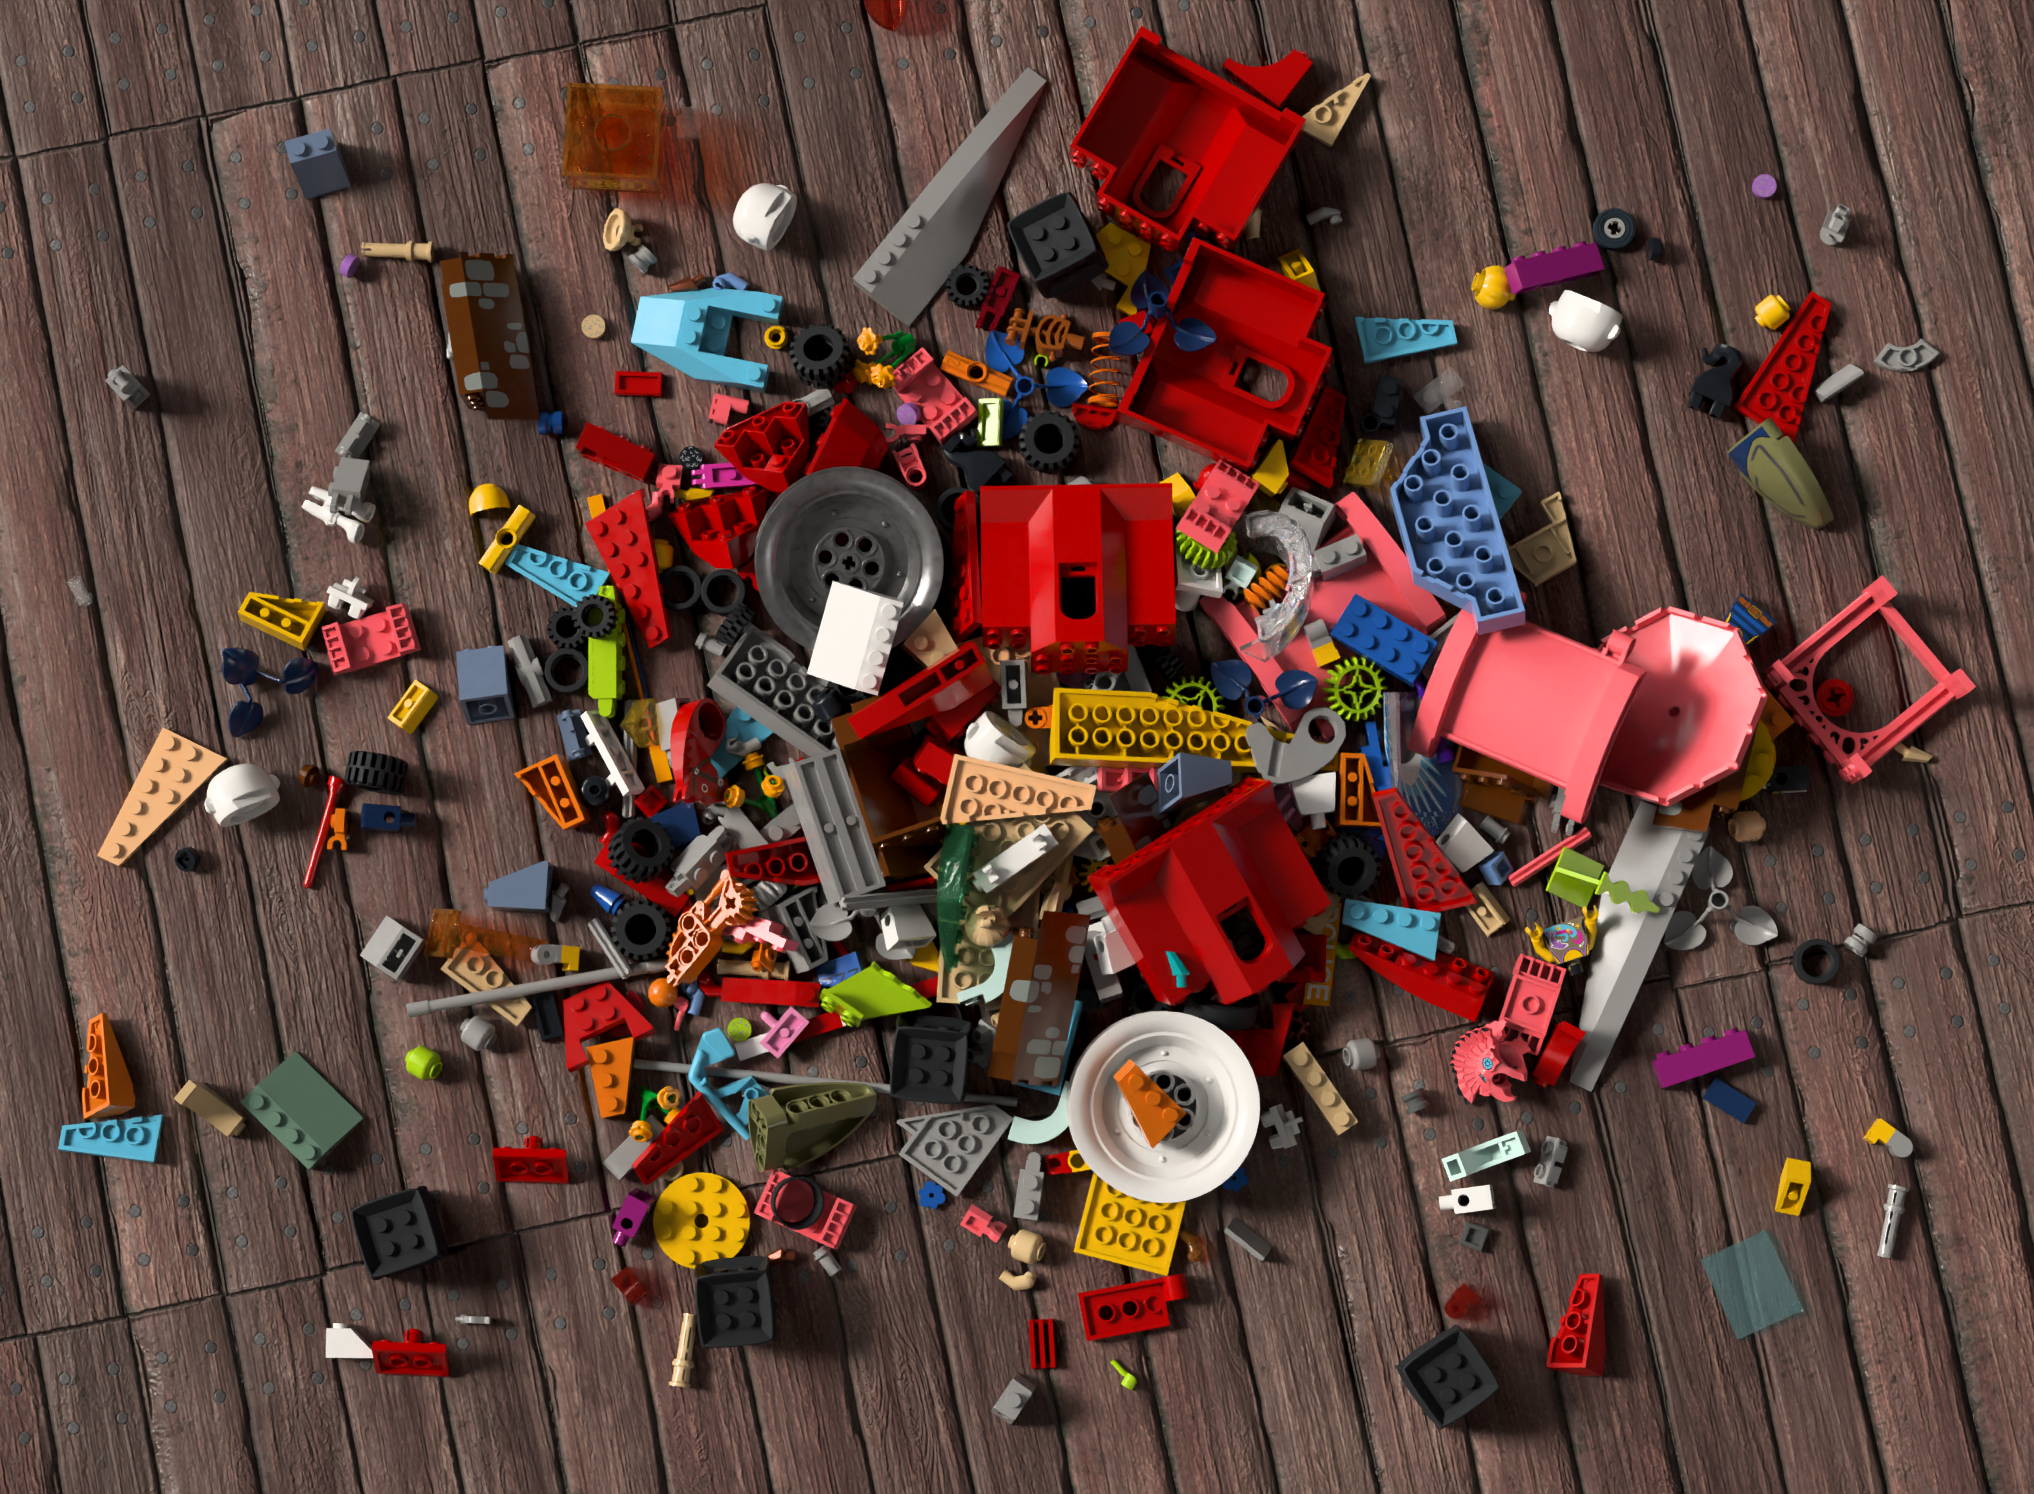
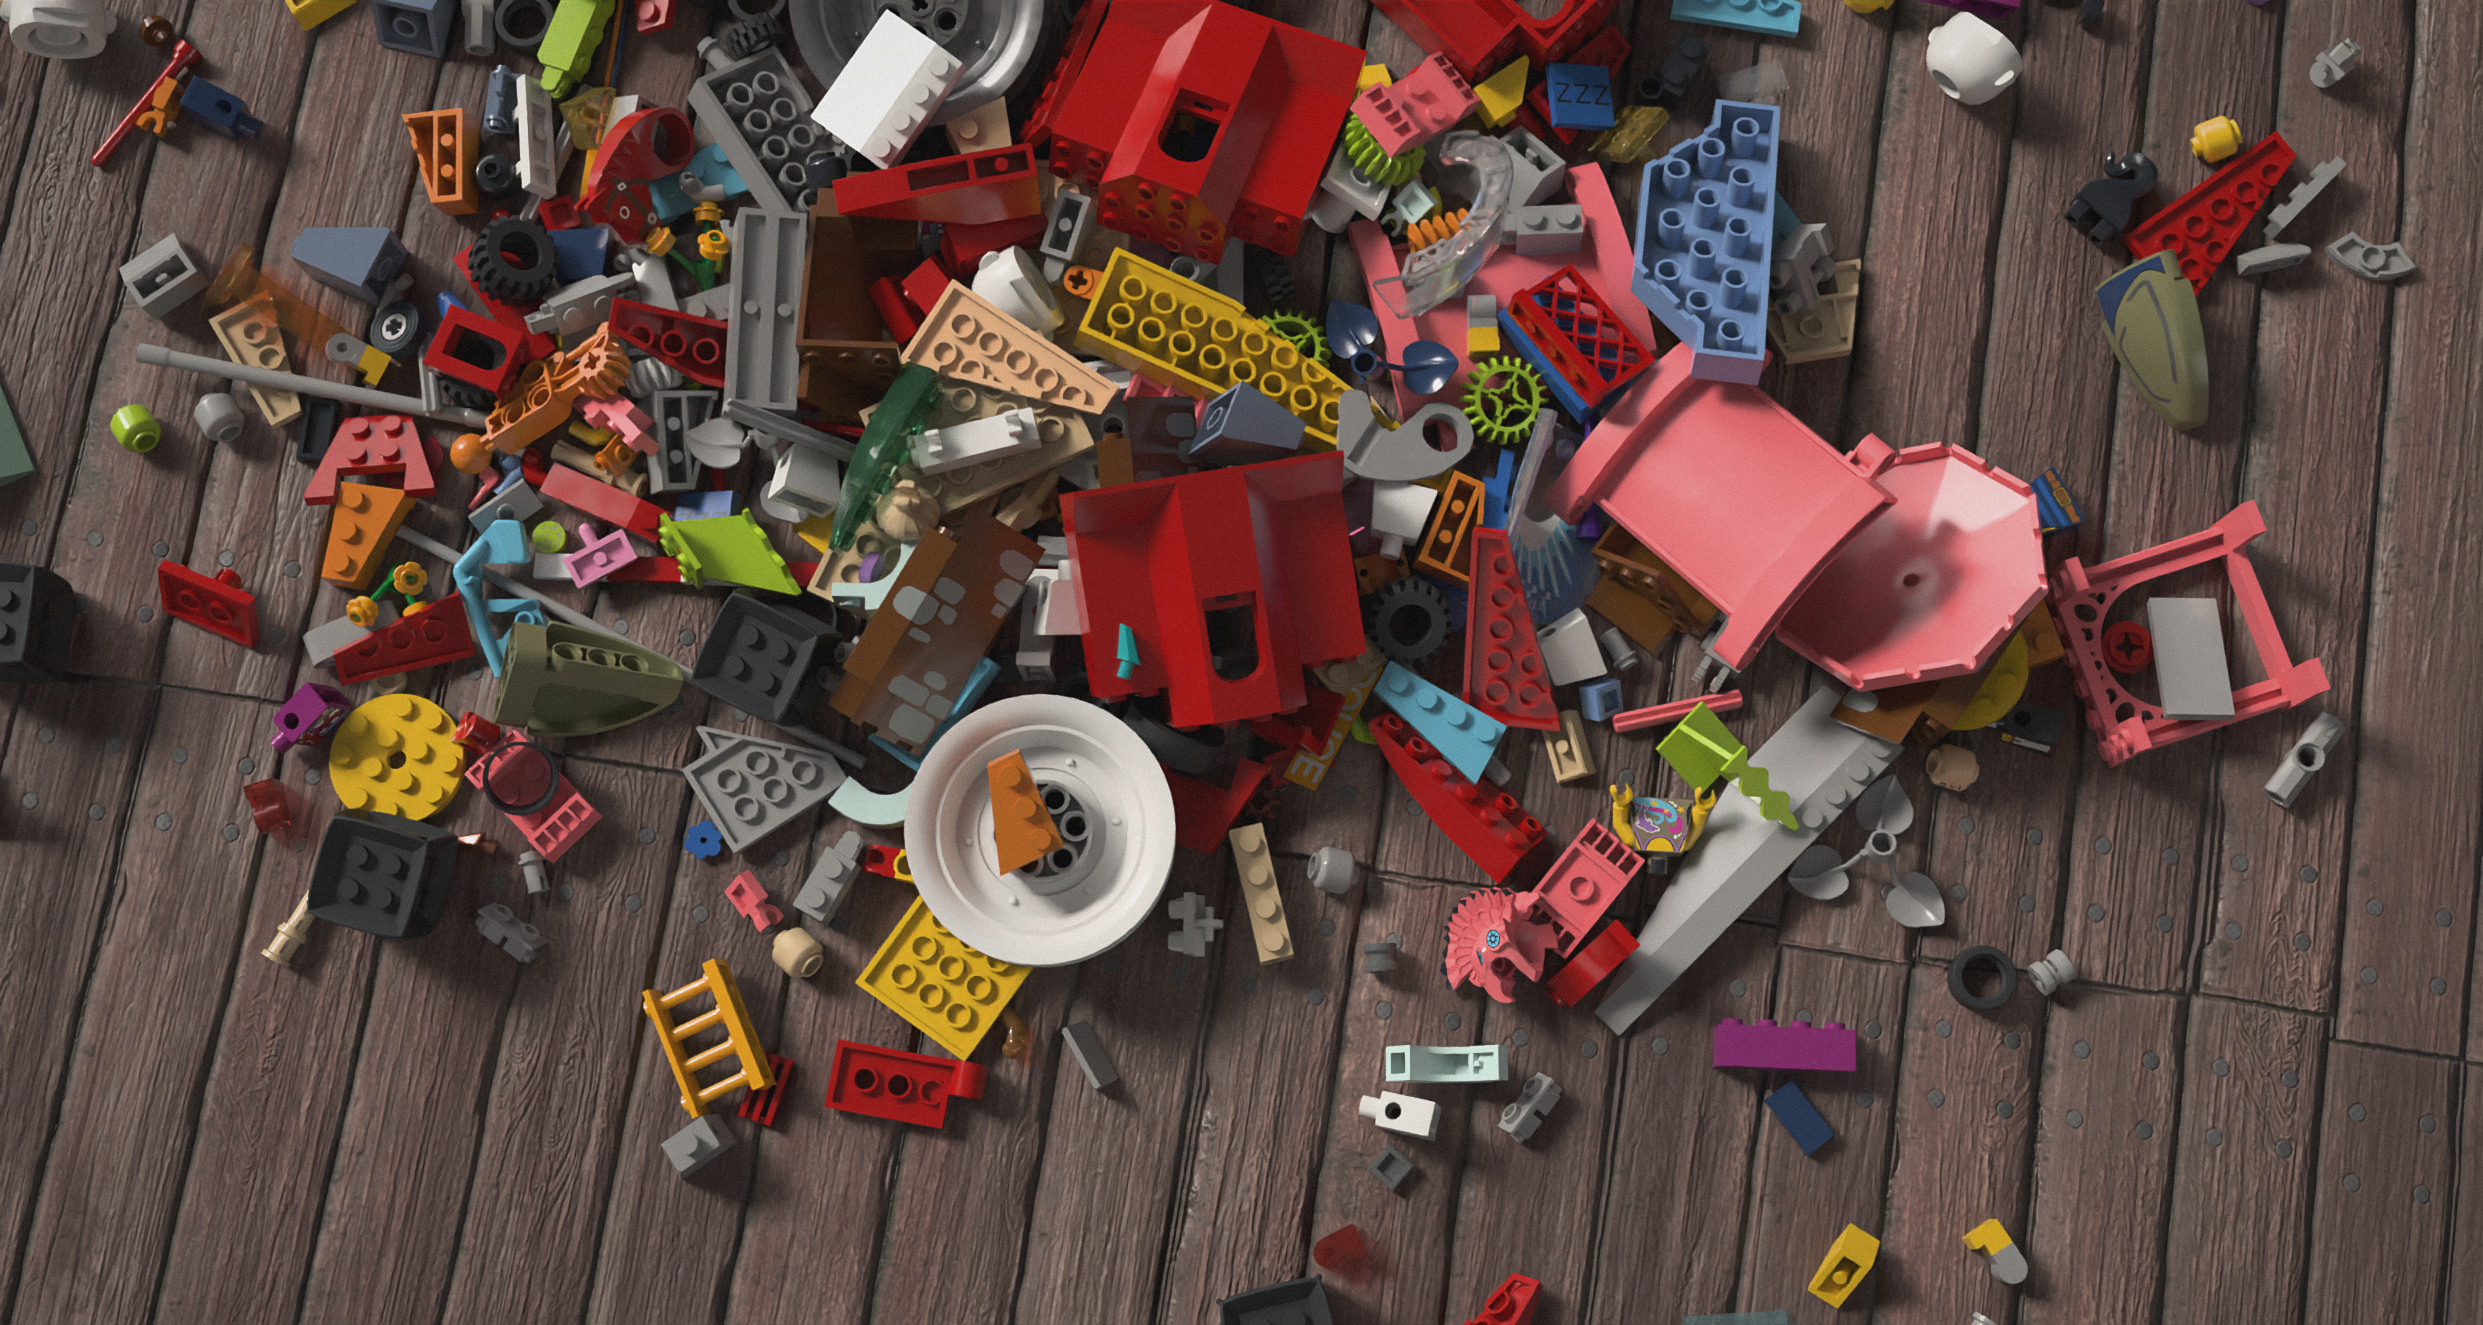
camera: 20 degrees right, 5 degrees down
(376, 772) = (233, 50): black tyre -> none
(465, 1319) = (45, 769): light grey piece -> none
(585, 929) = (389, 321): none -> black bush
(662, 941) = (497, 381): none -> red panel
(703, 1020) = (512, 504): none -> light grey plate
(750, 1183) = (475, 734): none -> red leg
(818, 1302) = (499, 921): none -> light grey hinge
(976, 971) = (871, 567): none -> medium lavender tile
(1015, 1320) = (742, 1042): none -> light orange fence
(1018, 1282) = (769, 996): tan arm -> none
(1129, 1380) = (860, 1182): lime hand -> none
(1241, 1180) = (1112, 975): blue plant -> none
(1325, 452) = (1579, 96): none -> blue tile
(1387, 649) = (1560, 345): none -> red fence
(1520, 518) = (1800, 266): none -> light grey hips
(1845, 330) = (2303, 195): none -> light grey plate
(1879, 692) = (2190, 659): none -> light grey tile
(1912, 754) = (2205, 757): tan bar -> none
(1973, 745) = (2315, 744): none -> light grey piece

